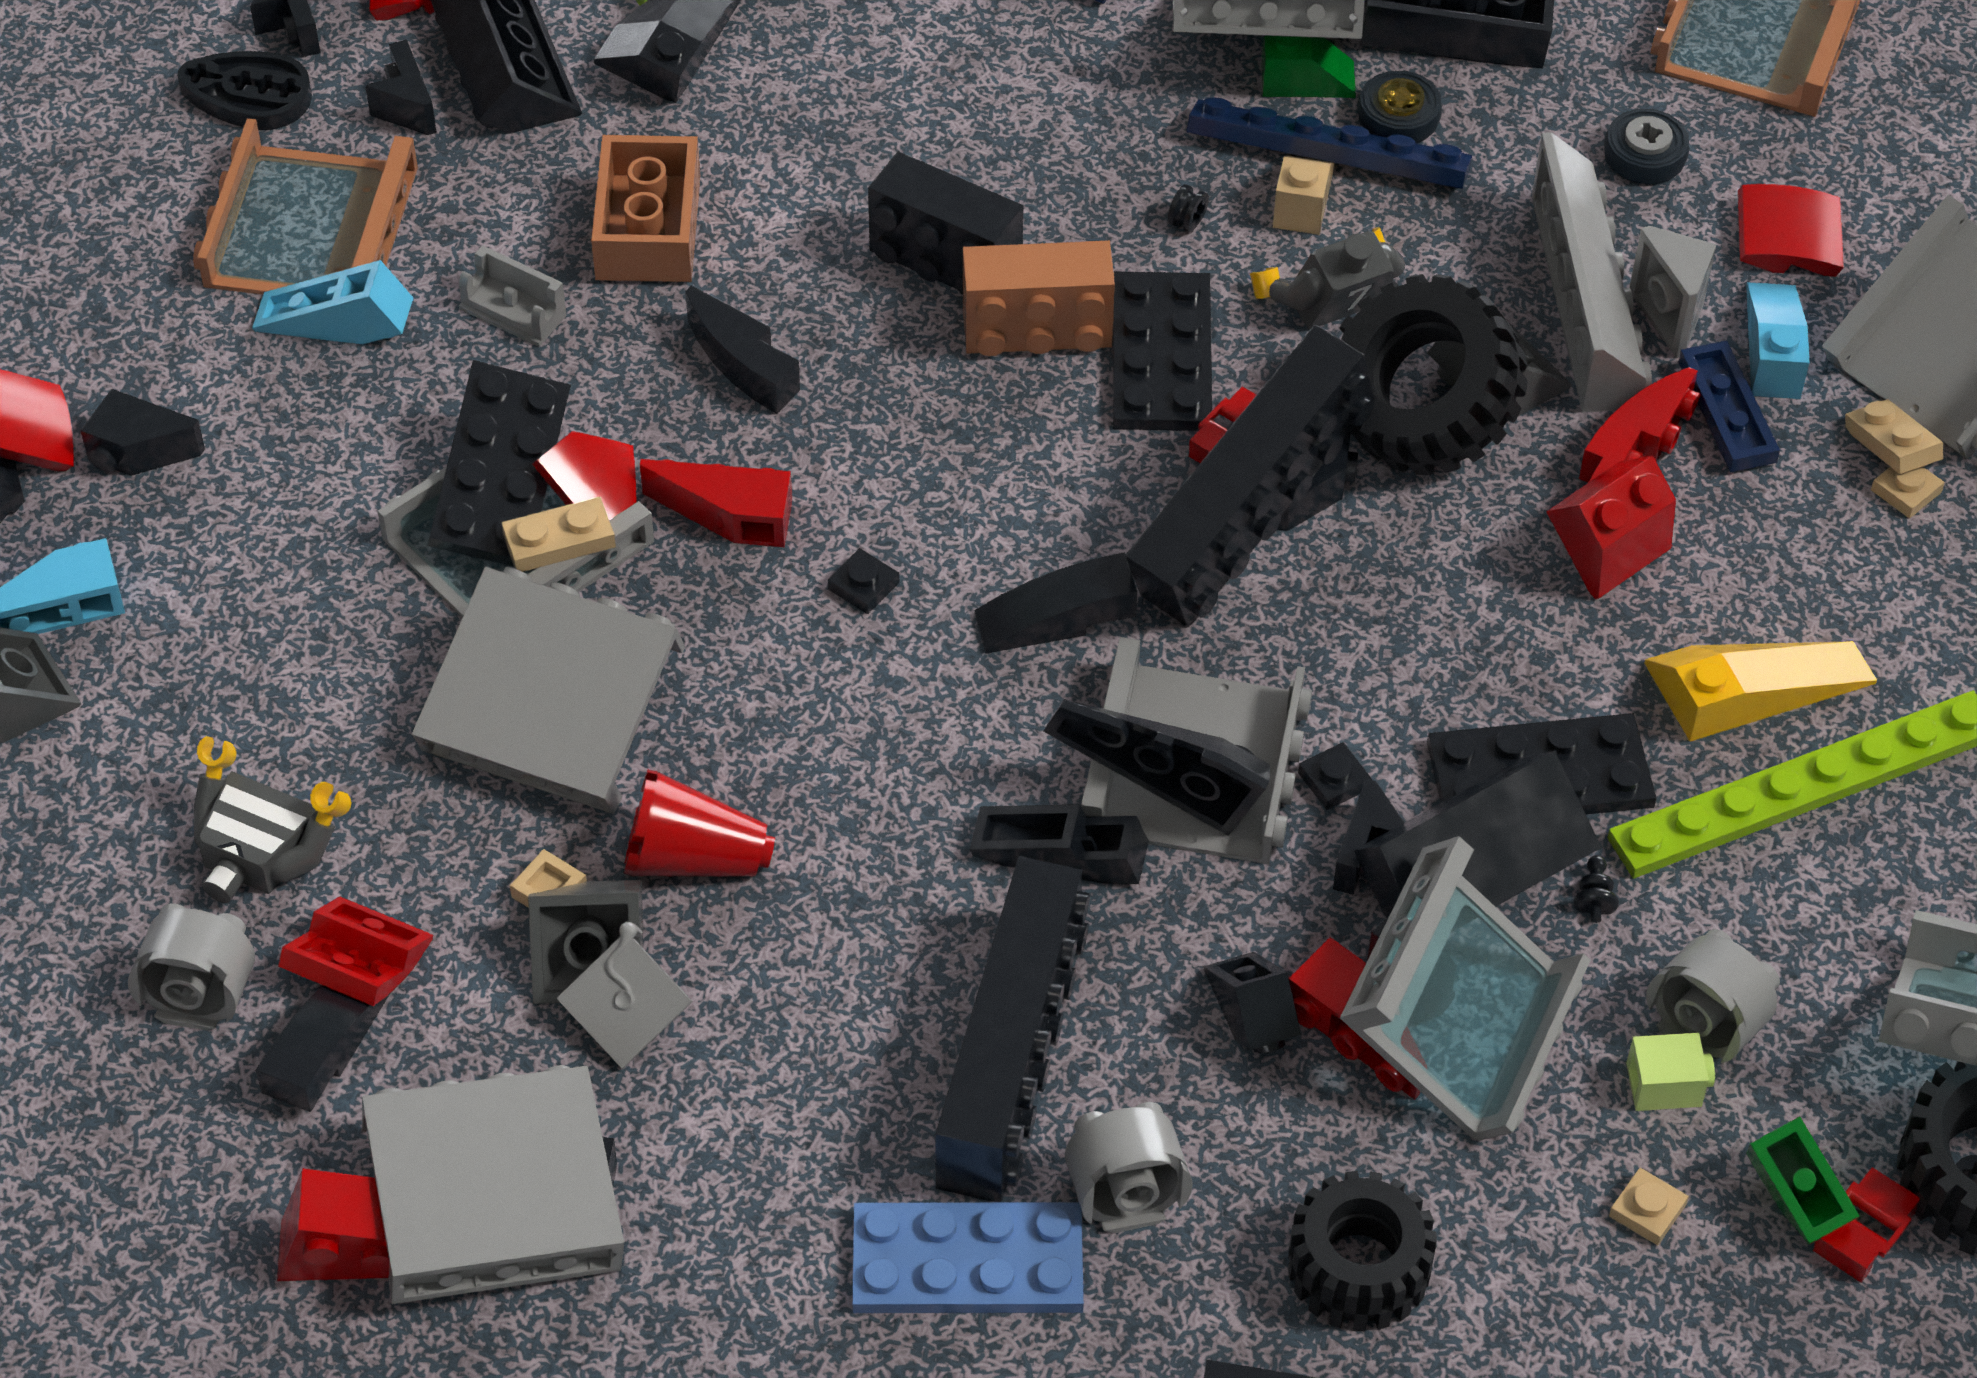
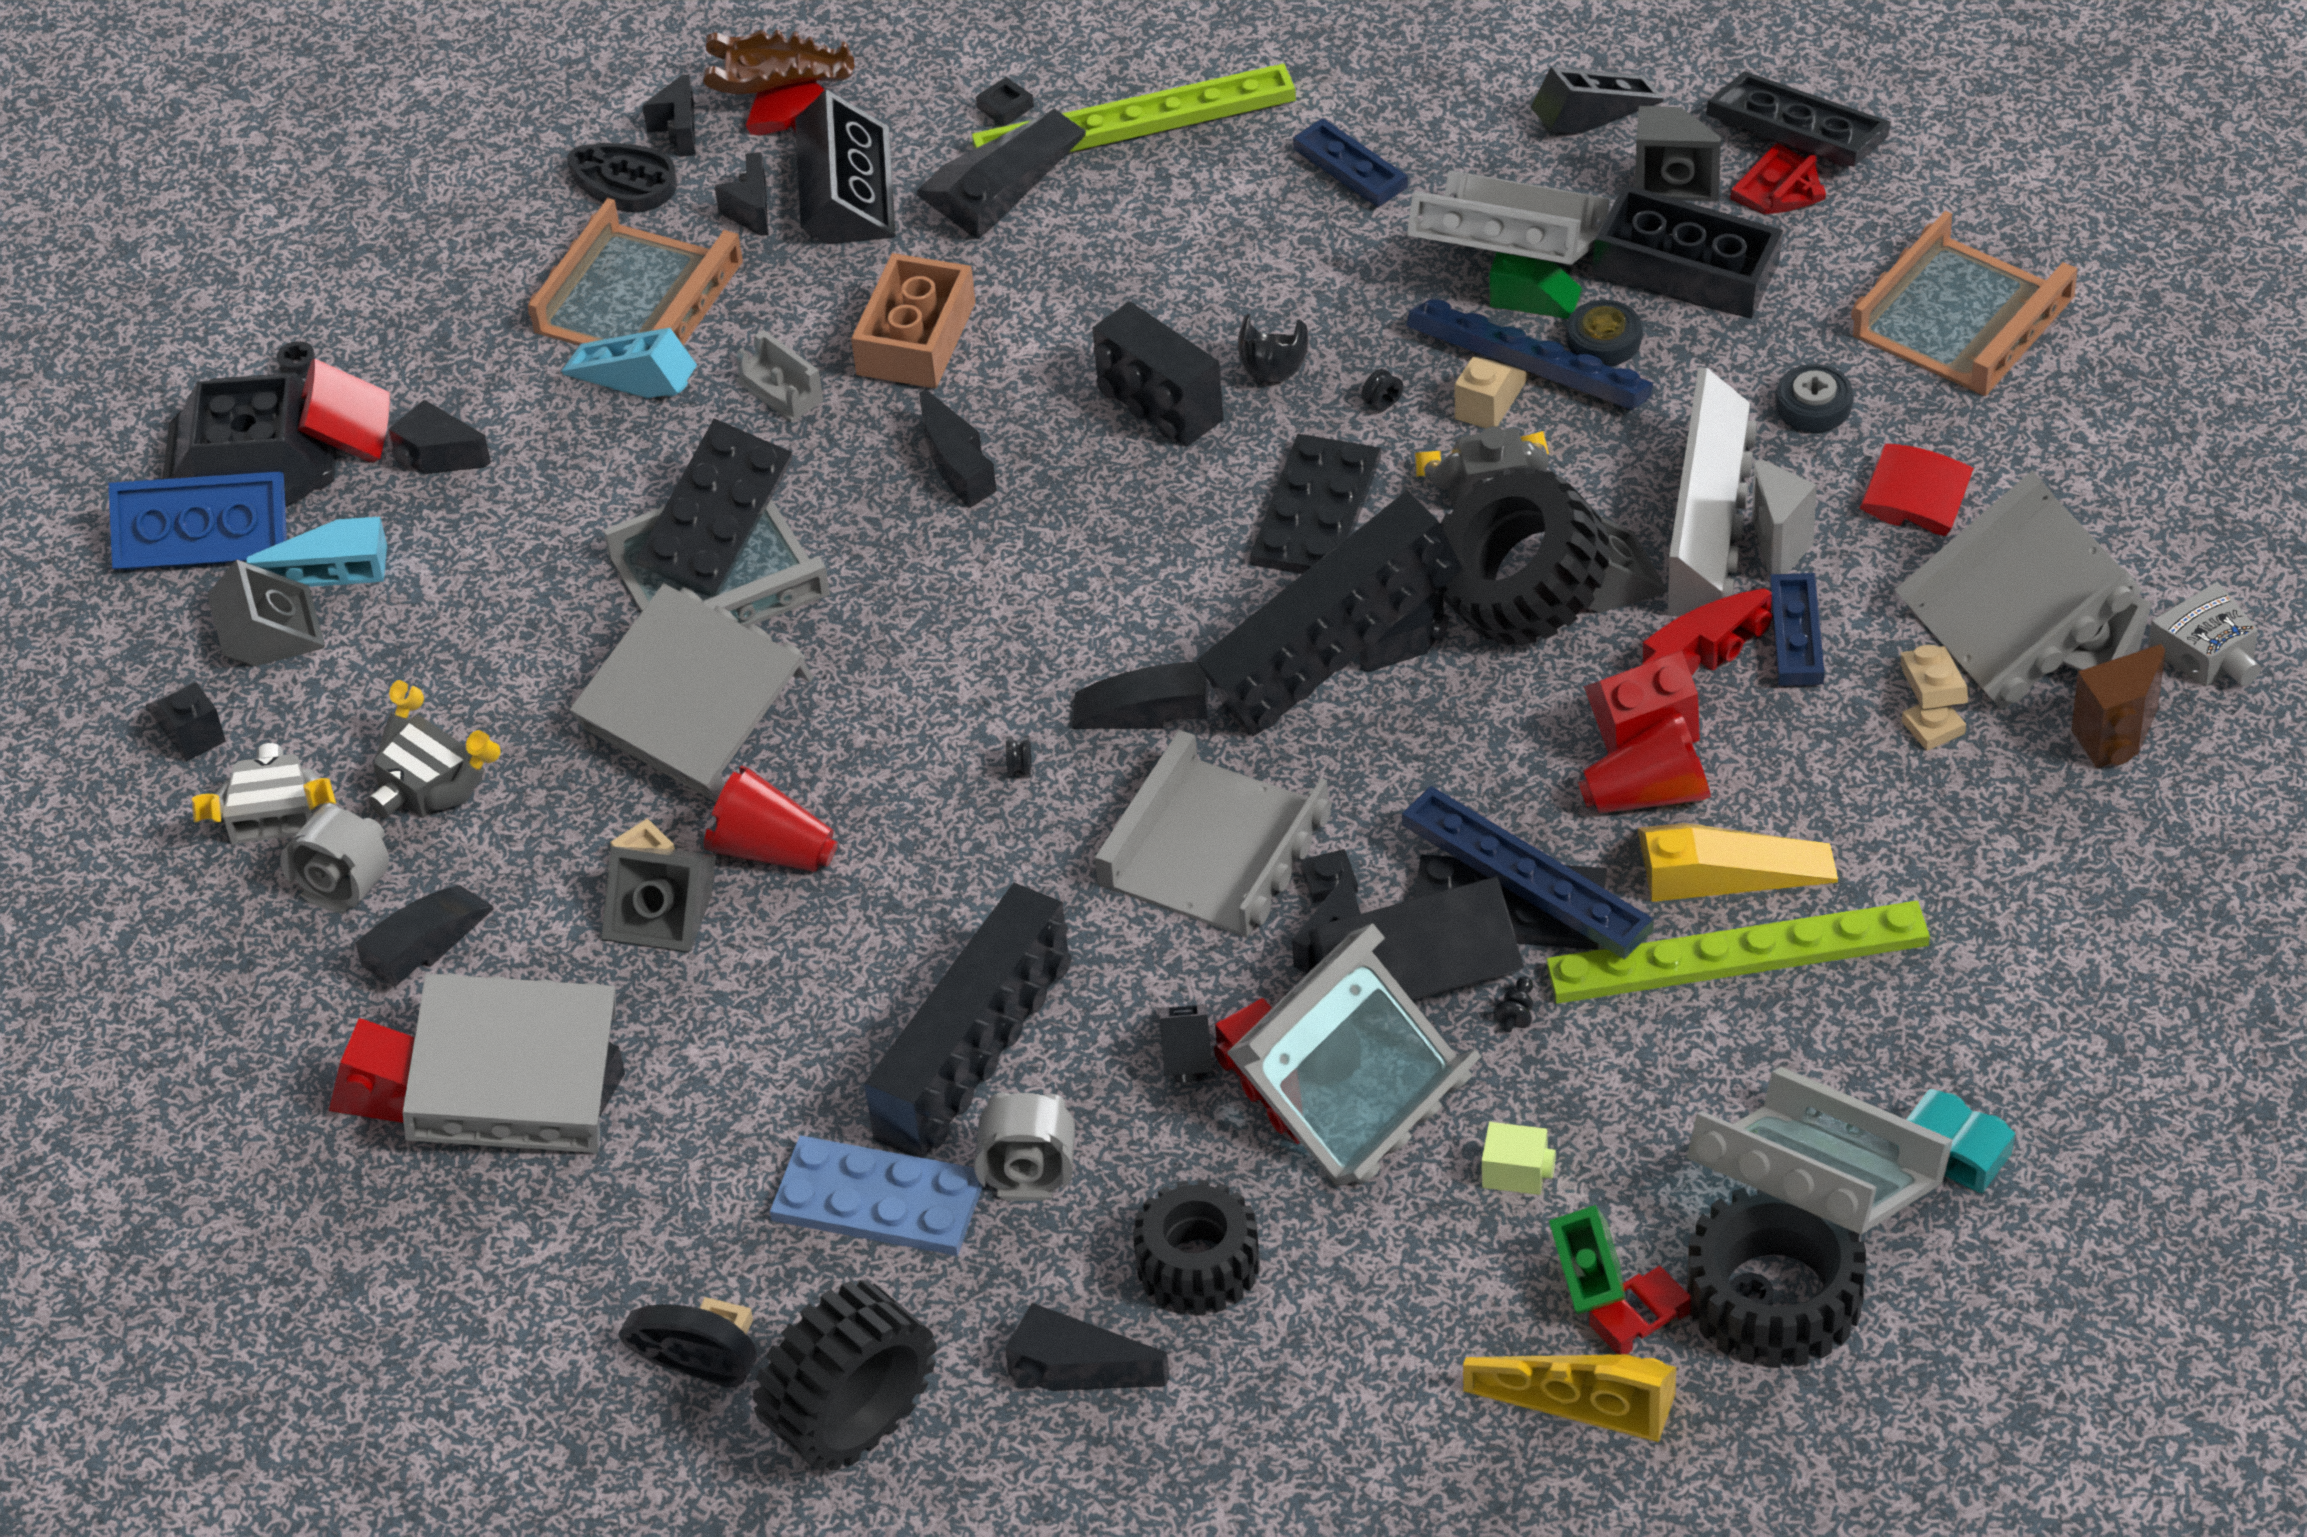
camera: 20 degrees right, 5 degrees down
(81, 904) = (265, 797): none -> torso
(355, 951) = (472, 871): red slope -> none
(558, 534) = (741, 571): tan plate -> none
(590, 468) = (787, 528): red slope -> none
(624, 998) = (668, 942): light grey hat -> none
(729, 500) = (900, 570): red slope -> none
(863, 581) = (990, 653): black plate -> none
(942, 697) = (1018, 756): none -> black bush
(1038, 297) = (1214, 442): nougat brick -> none
(1056, 187) = (1272, 356): none -> black hair
(1102, 846) = (1088, 894): black slope -> none
(1179, 765) = (1190, 841): black wedge -> none
(1577, 738) = (1528, 872): none -> dark blue plate
(1645, 593) = (1647, 771): none -> red cone
(1648, 1206) = (1460, 1262): tan plate -> none
(1715, 992) = (1574, 1102): light grey brick -> none
(1777, 340) = (1862, 580): medium azure slope -> none
(1873, 1328) = (1598, 1390): none -> yellow wedge

